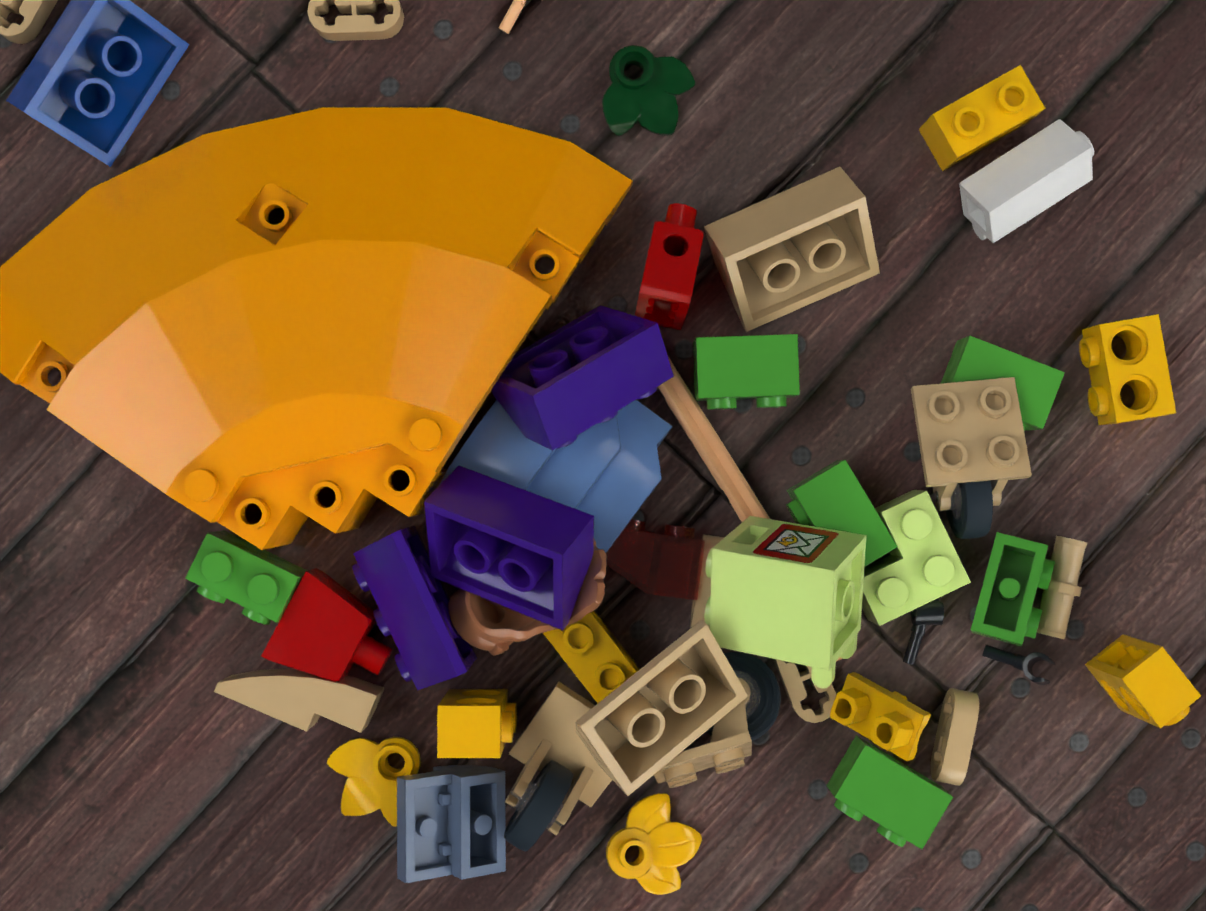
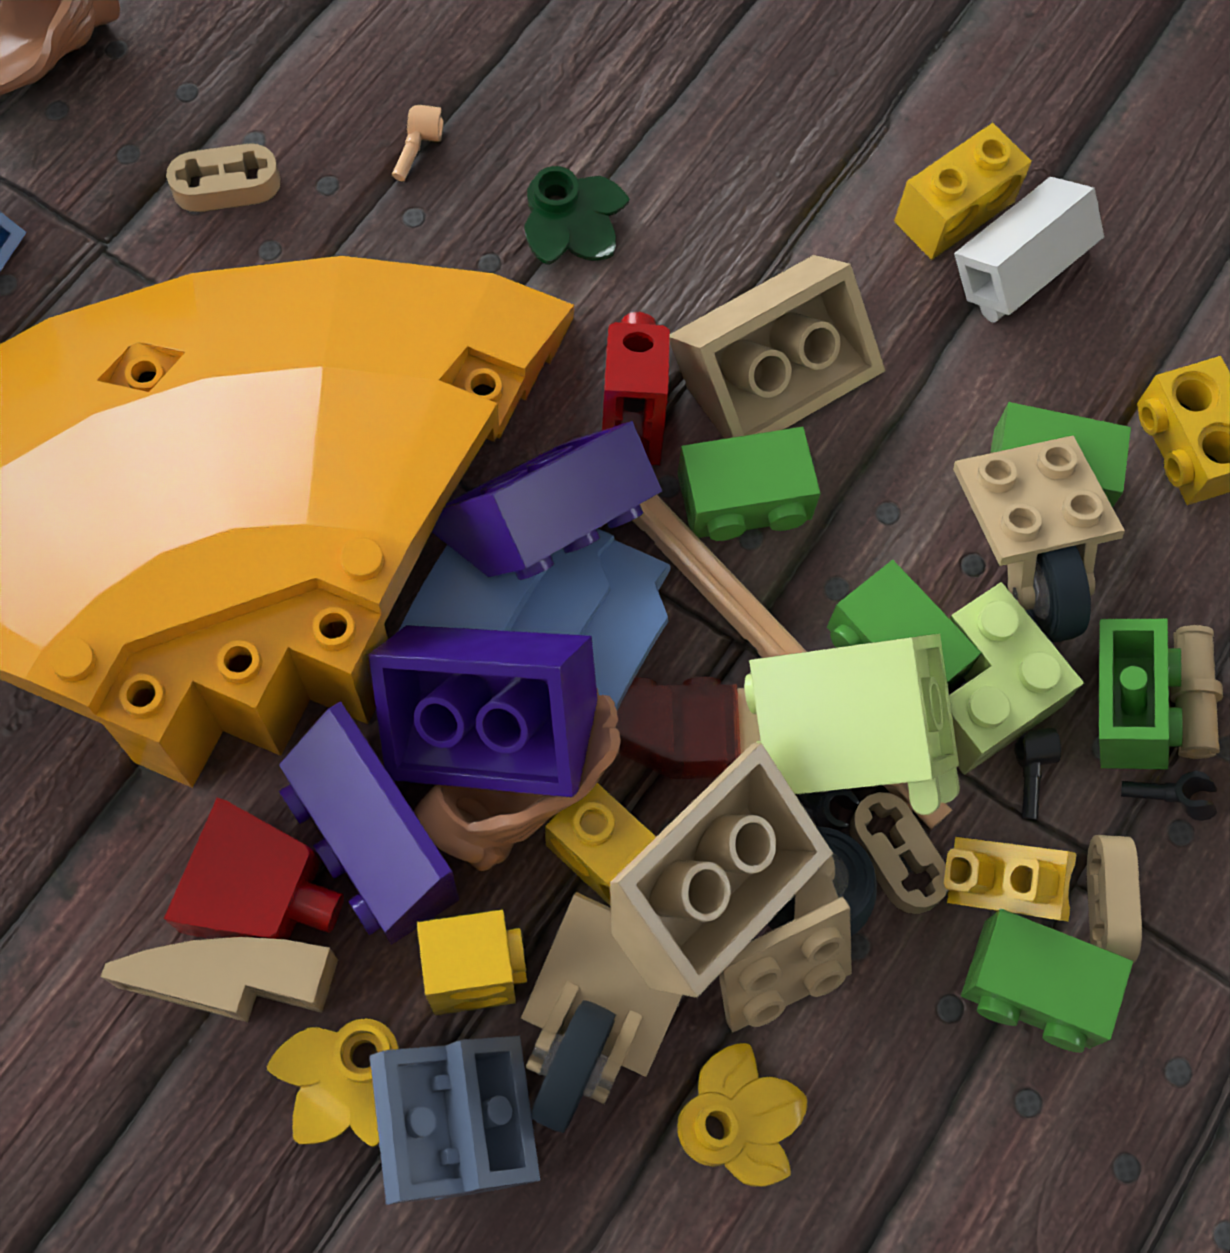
camera: 15 degrees left, 20 degrees down
(246, 575) = (132, 821): bright green brick -> none

